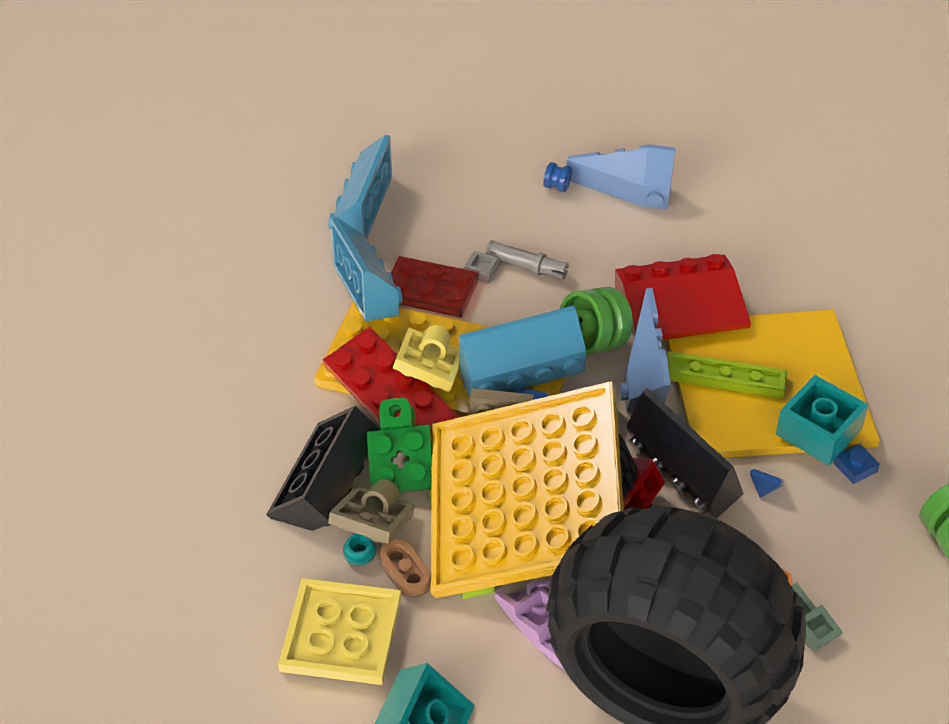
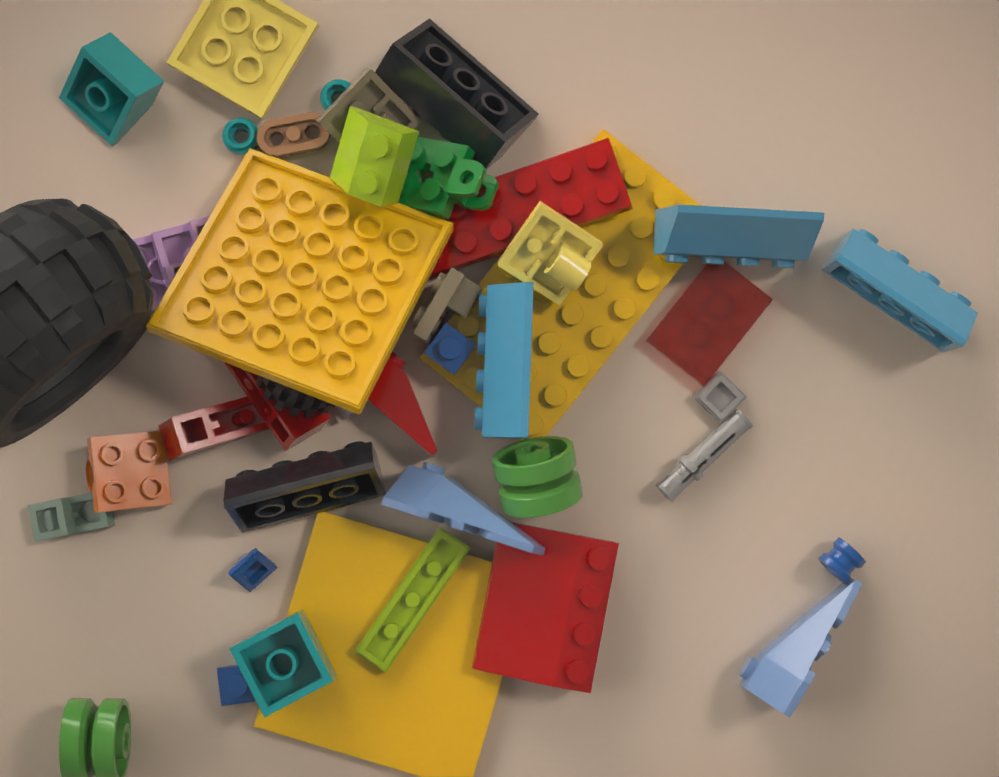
camera: 110 degrees right, 40 degrees up
(404, 481) = (373, 157): none -> lime slope
(422, 599) = (235, 126): none -> teal plate

